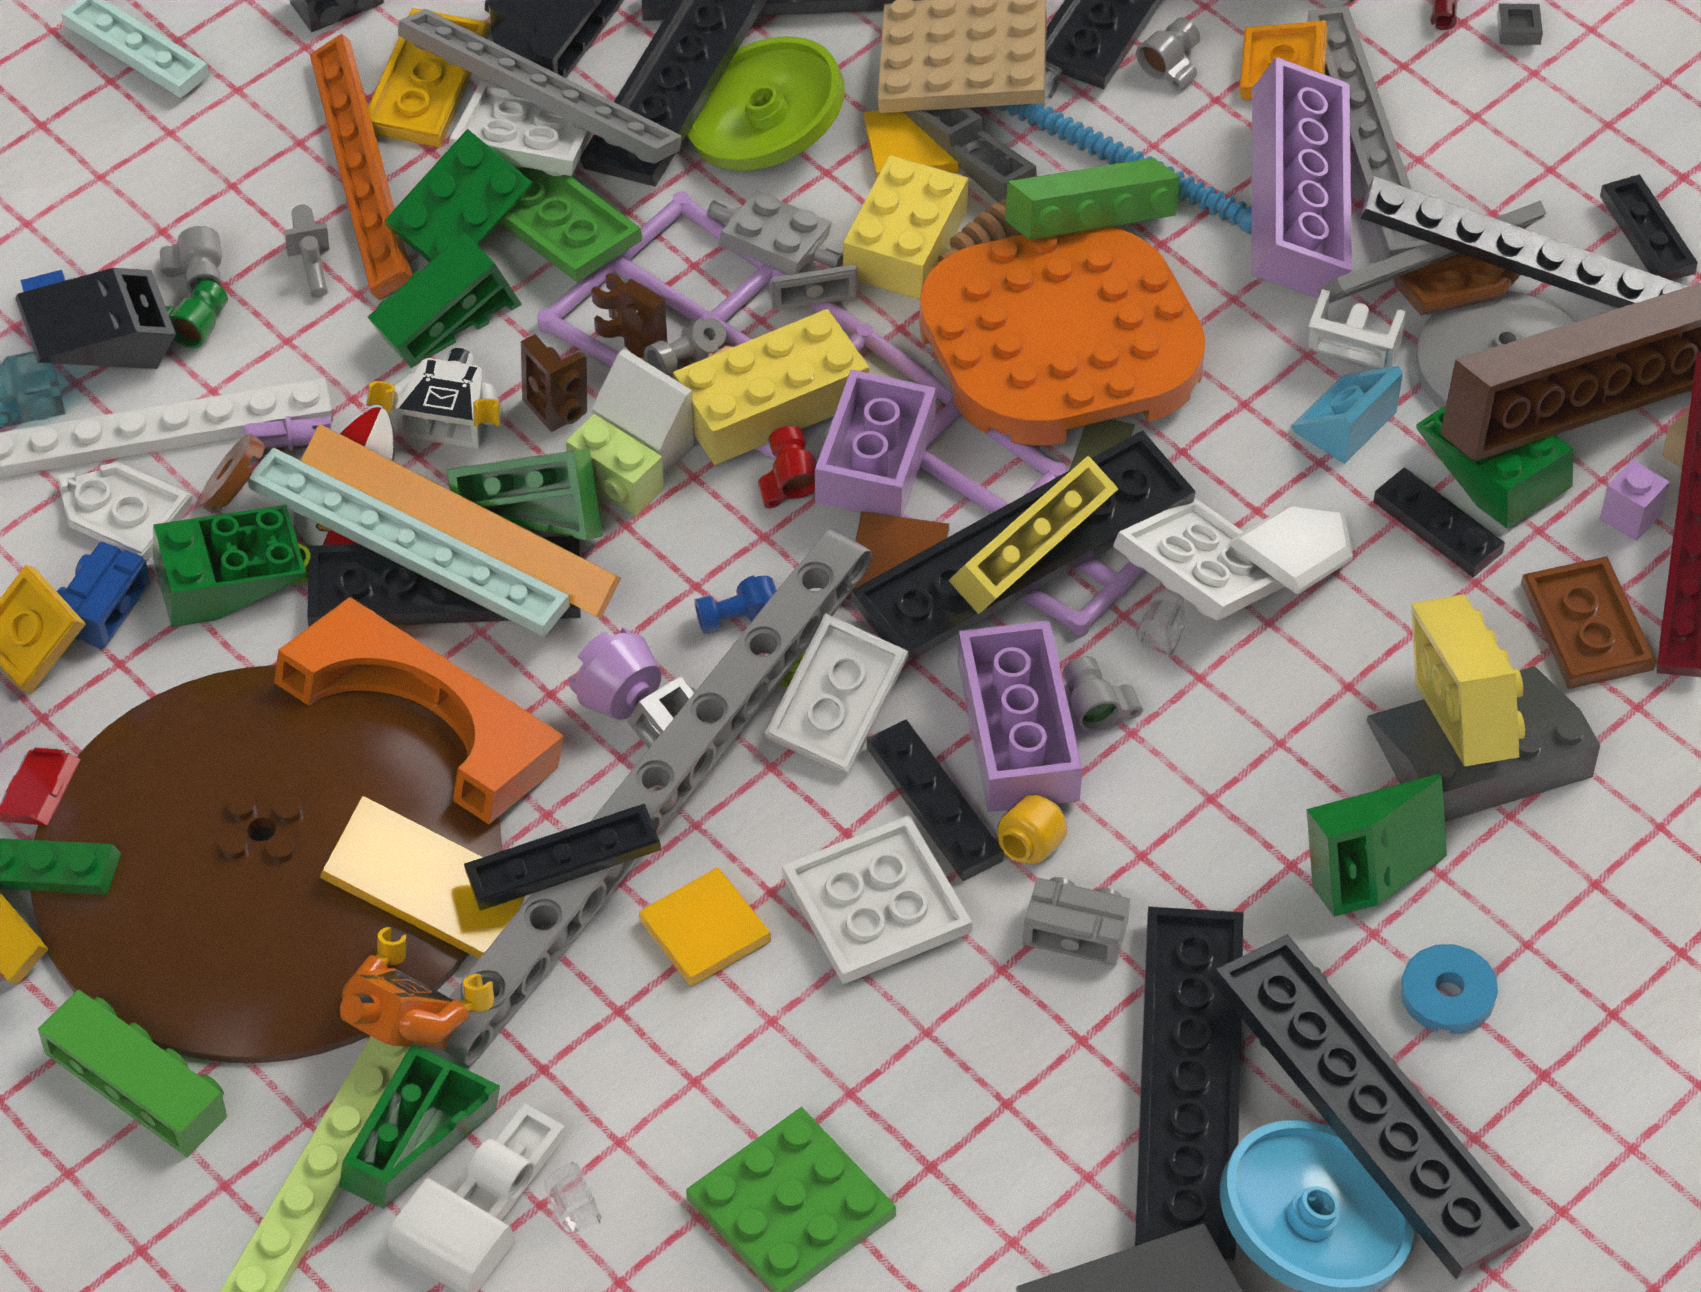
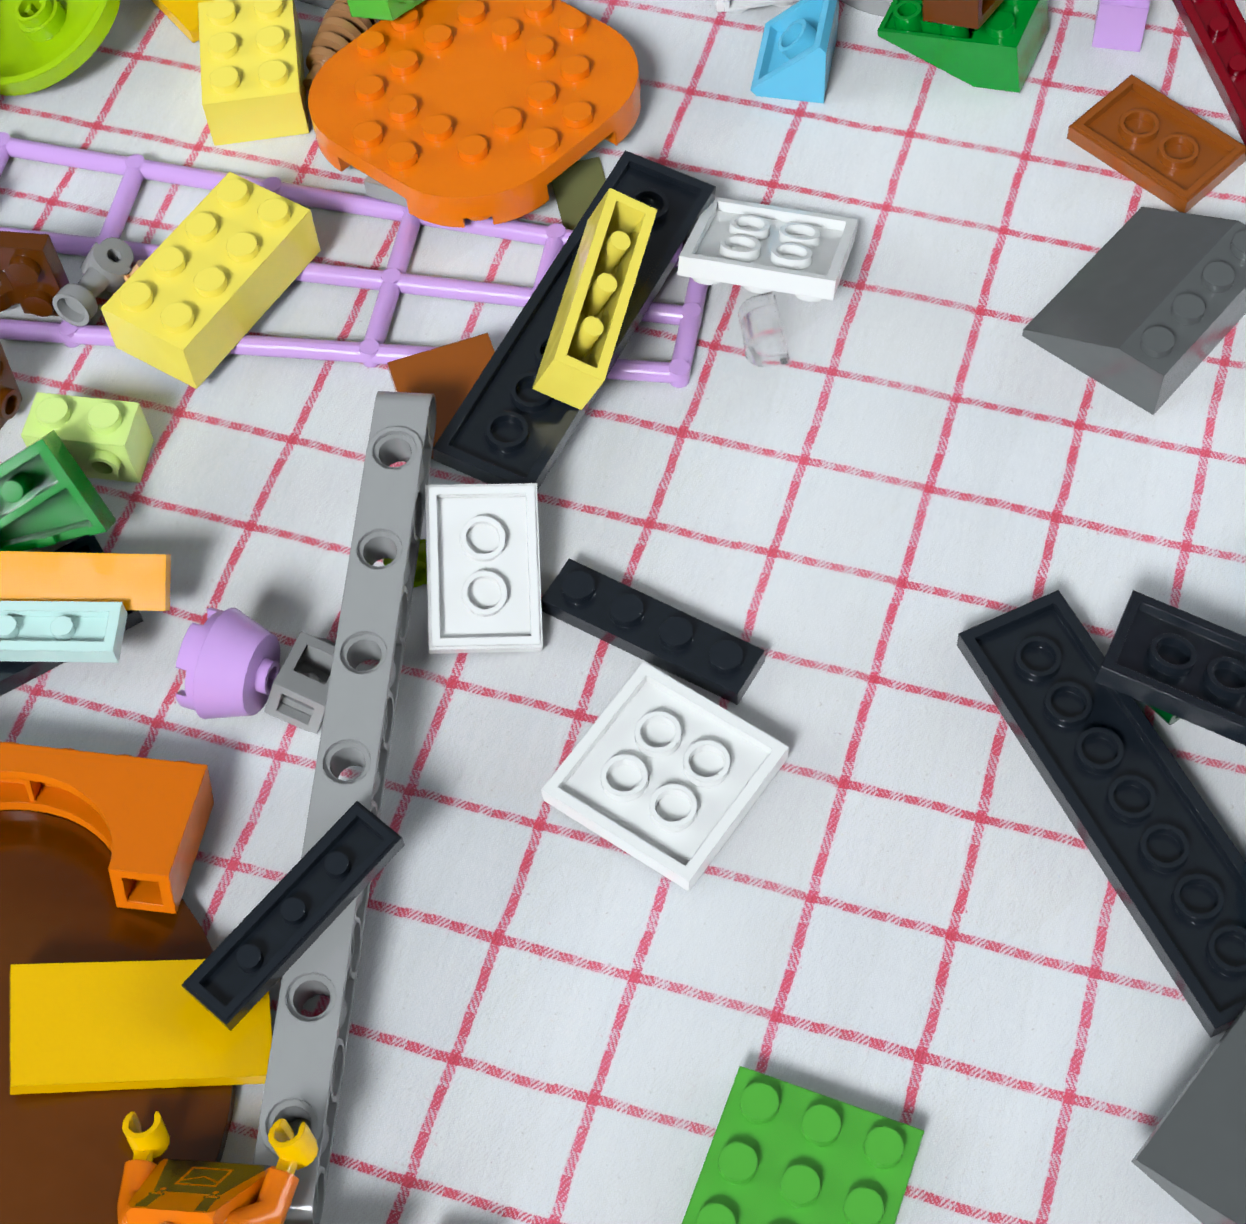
camera: 25 degrees left, 5 degrees up
(648, 407) = (91, 356): white slope -> none
(704, 926) = (493, 905): yellow tile -> none
(750, 599) = (325, 508): blue leg -> none
(775, 233) = (121, 131): light grey plate -> none
(792, 470) = (287, 355): red piece -> none
(813, 287) = (194, 163): light grey slope -> none
(875, 444) = (362, 286): lavender brick -> none
(1019, 714) = (691, 497): lavender brick -> none
(1031, 829) = (781, 612): yellow head -> none
(1076, 920) = (894, 686): light grey brick -> none
(1095, 699) = (751, 442): light grey piece -> none
(1297, 545) = (844, 196): white tile -> none
(1375, 843) = (1139, 455): green slope -> none
(1439, 522) = (953, 115): black plate -> none
(1467, 680) = (1128, 240): light yellow brick -> none

